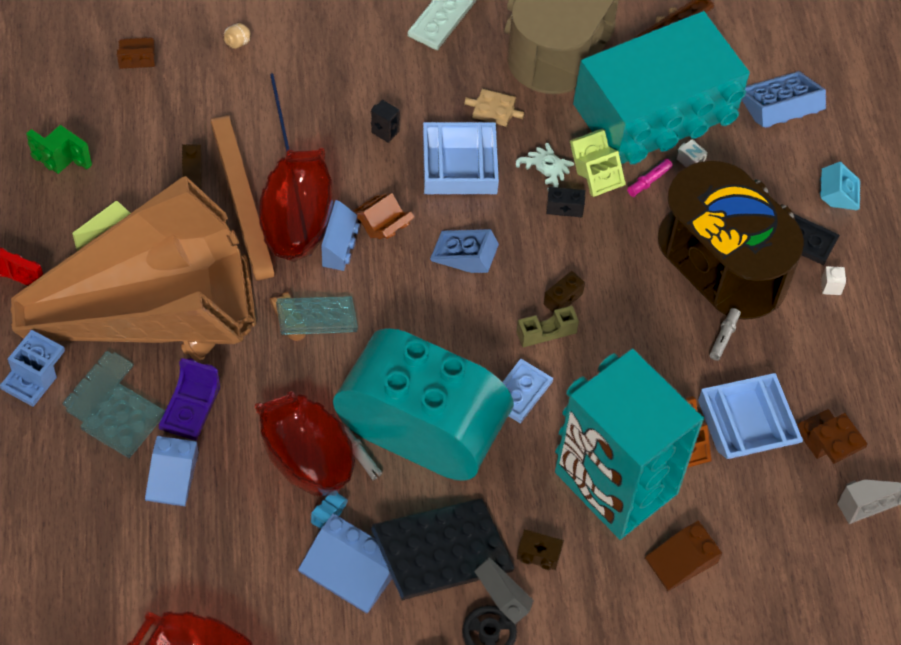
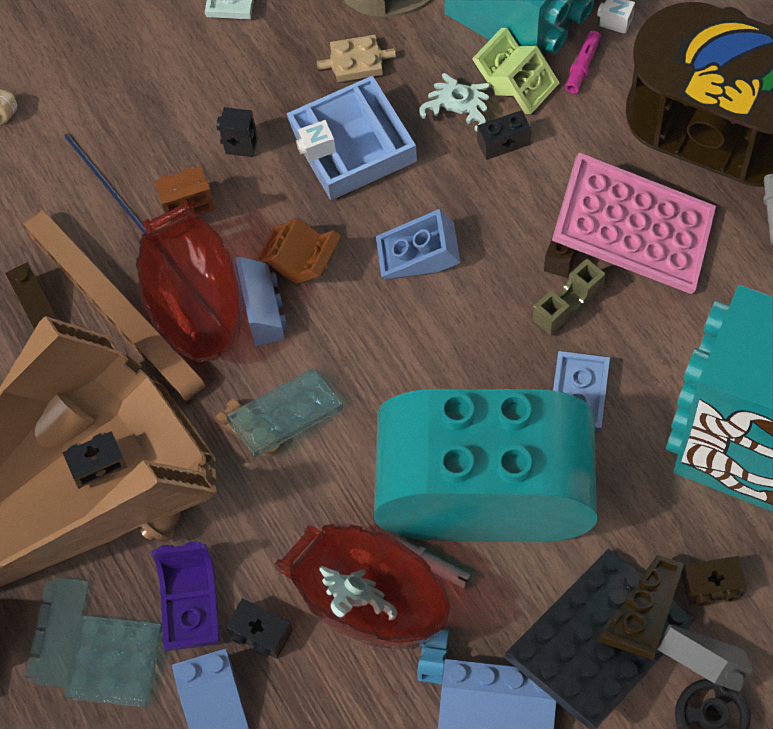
camera: 15 degrees left, 5 degrees up
(175, 286) = (86, 470): none -> black brick
(225, 442) = (250, 617): none -> black brick
(296, 443) = (354, 591): none -> light aqua animal
(331, 140) = (185, 185): none -> dark orange bracket
(431, 148) = (316, 141): none -> white brick
(475, 547) = (644, 614): none -> dark brown wing
(619, 297) = (634, 223): none -> bright pink plate

